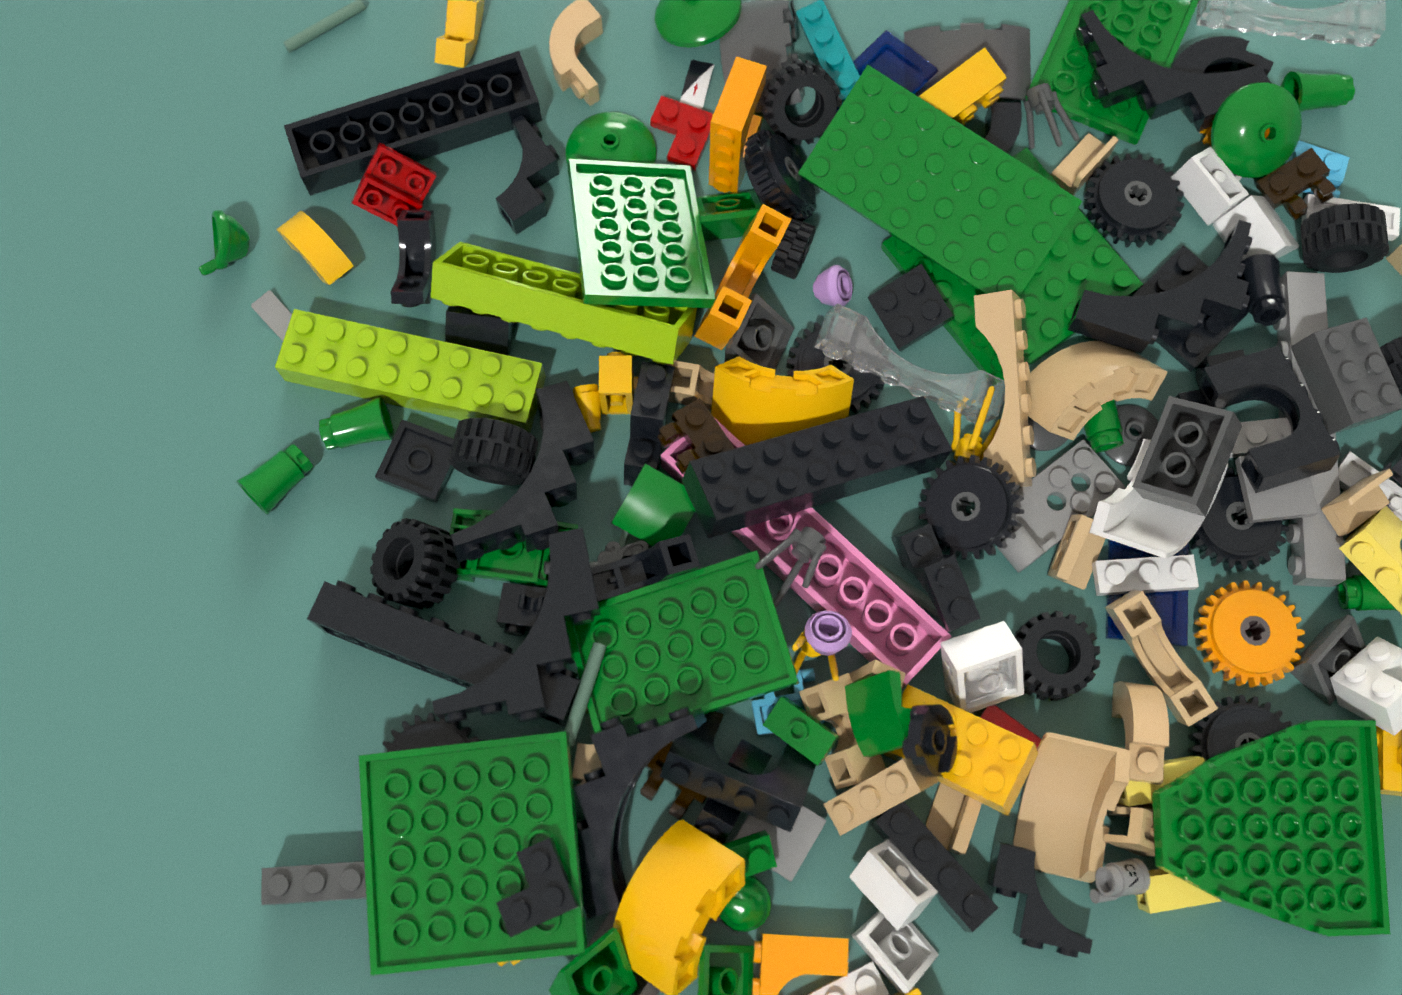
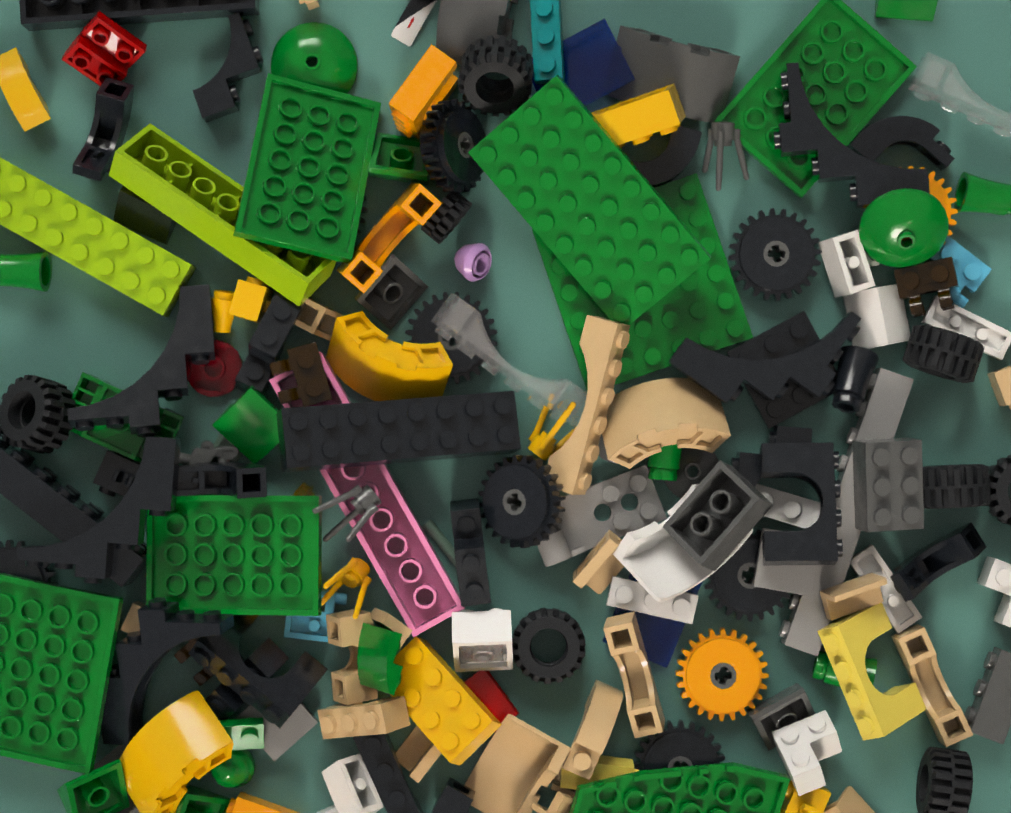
camera: 20 degrees right, 15 degrees up
(417, 461) = (65, 317): black plate -> none
(493, 451) = (127, 334): black tyre -> none
(548, 890) = (71, 722): black plate -> none
(584, 691) = (146, 567): sand green bar -> none
(600, 477) = (218, 375): none -> dark red tile
(690, 127) = (395, 62): red plate -> none
(801, 730) = (316, 647): green plate -> none
(828, 632) = (357, 570): lavender cone -> none
(910, 307) = (535, 300): black plate -> none
(930, 740) = (395, 700): black plate -> none
(1082, 162) = (742, 202): tan panel -> none

